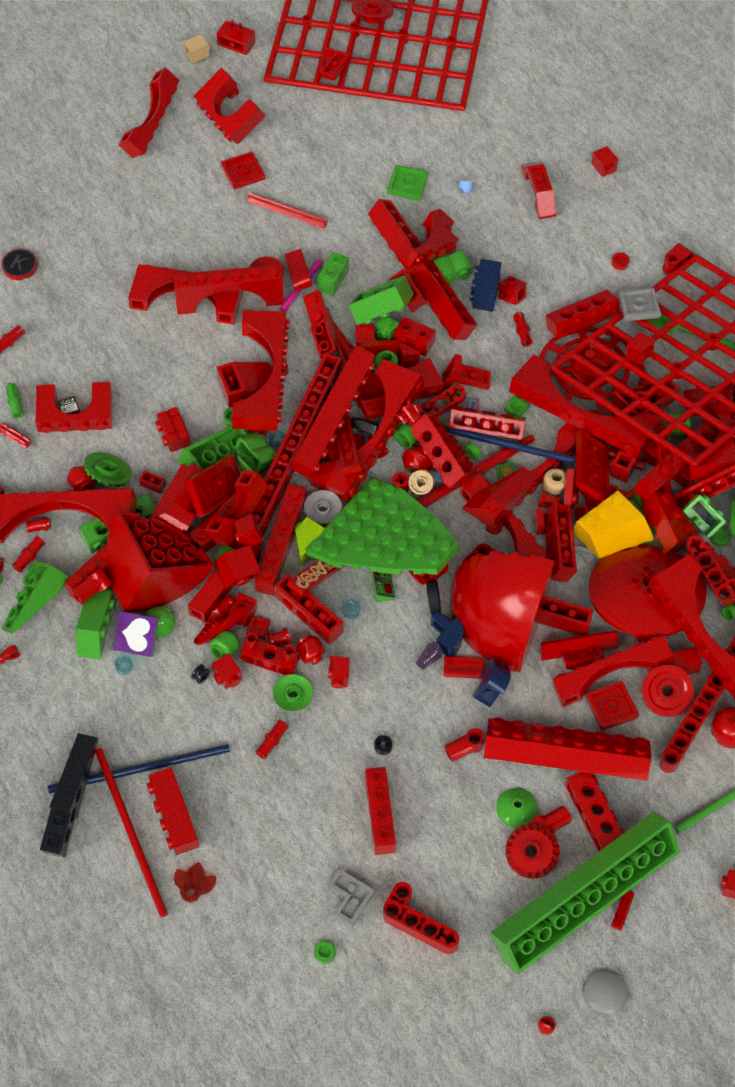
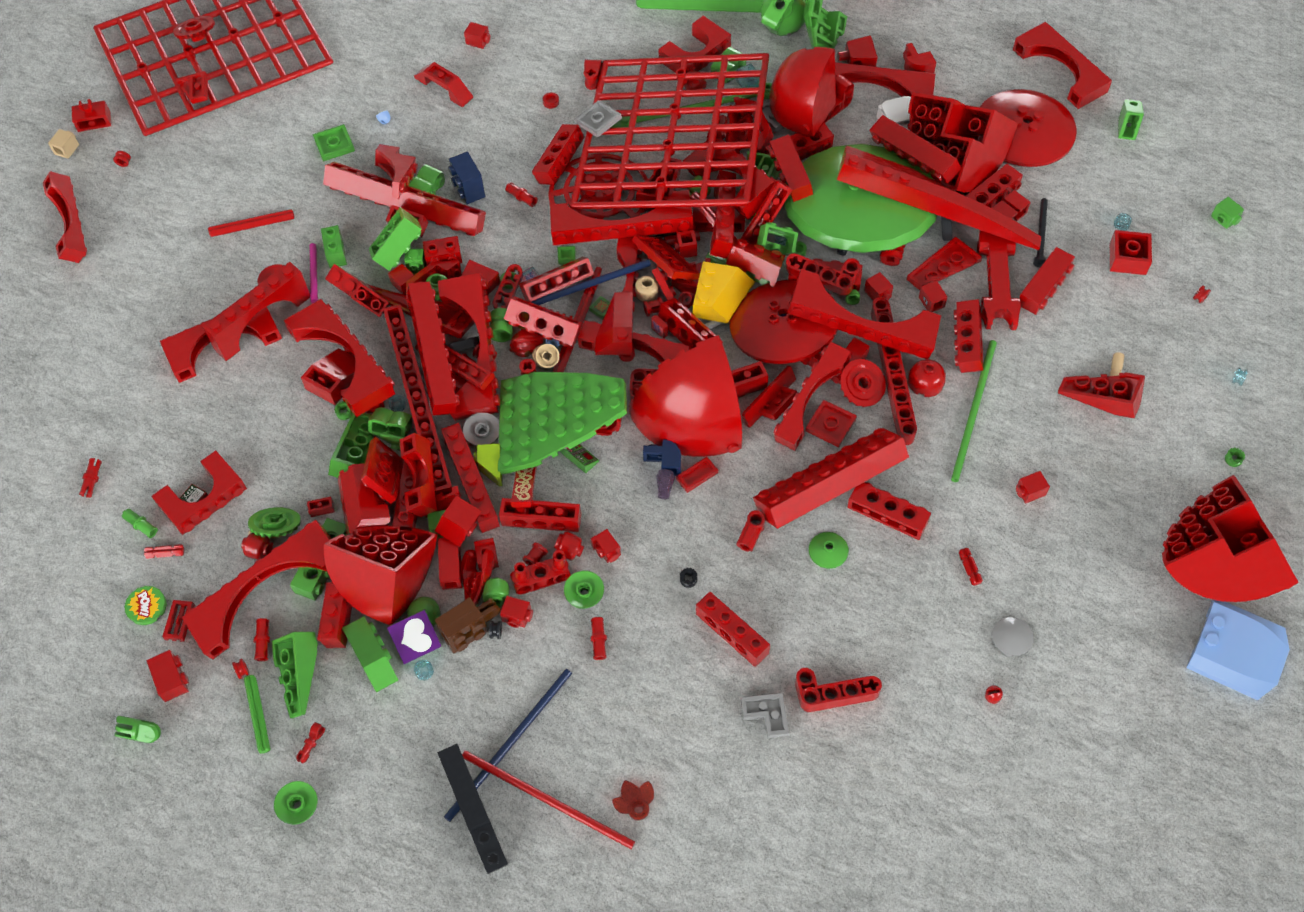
camera: 35 degrees left, 0 degrees up
(19, 264) = (47, 410): black tile -> none
(38, 525) = (250, 609): red pin -> none
(94, 583) = (346, 619): red piece -> none
(173, 430) = (303, 453): red brick -> none
(173, 811) = (569, 755): red brick -> none
(180, 652) = (466, 623): none -> reddish brown brick
(211, 97) = (151, 182): red arch -> none
(243, 170) = (185, 215): red tile -> none
(248, 531) = (444, 486): red brick -> none
(259, 626) = (509, 559): red tile -> none
(298, 270) = (304, 261): red beam -> none
(324, 952) = (784, 772): bright green tile -> none
(353, 614) = (576, 496): clear light blue axle -> none
(410, 413) = (497, 307): red gear -> none
(433, 596) = (631, 436): black tyre -> none
(465, 374) = (502, 256): red bracket -> none
(472, 451) = (562, 307): bright green tile -> none
(495, 681) = (734, 465): dark blue brick -> none
(512, 290) = (490, 169): red brick -> none
(547, 851) = (857, 575): red gear -> none
(554, 820) = (863, 545): red piece -> none
(585, 892) = (938, 574): bright green brick -> none
(640, 348) = (629, 147): red brick -> none

